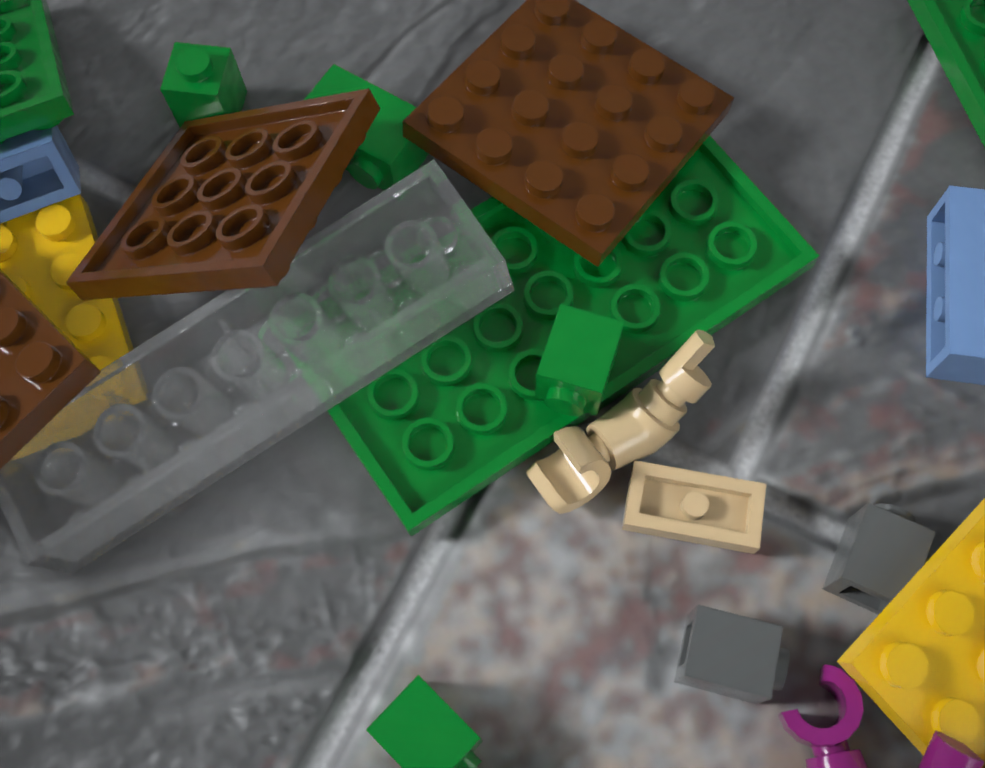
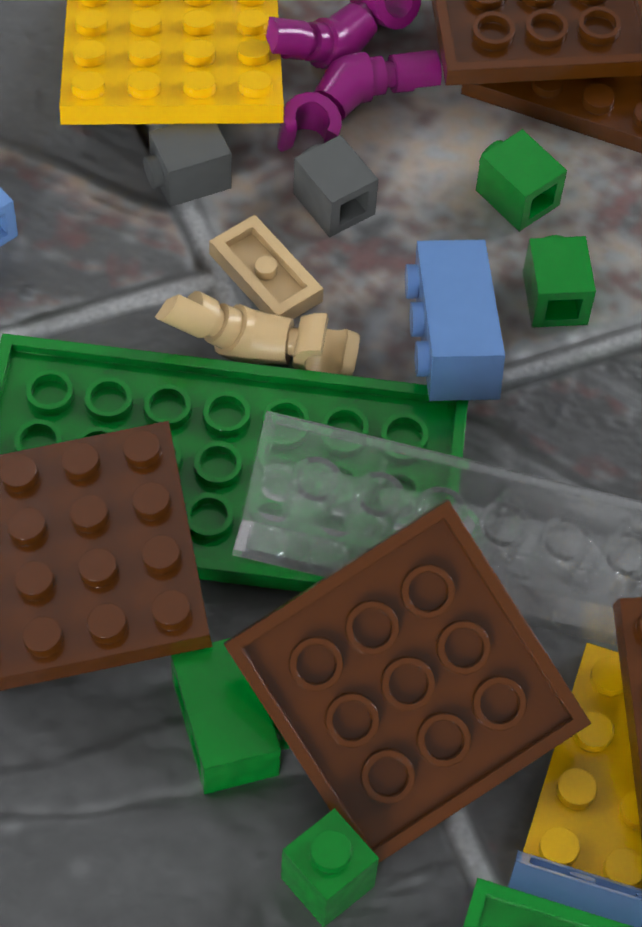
camera: 145 degrees left, 10 degrees down
(479, 585) = (456, 320): none -> medium blue brick
(578, 361) = (258, 376): green brick -> none

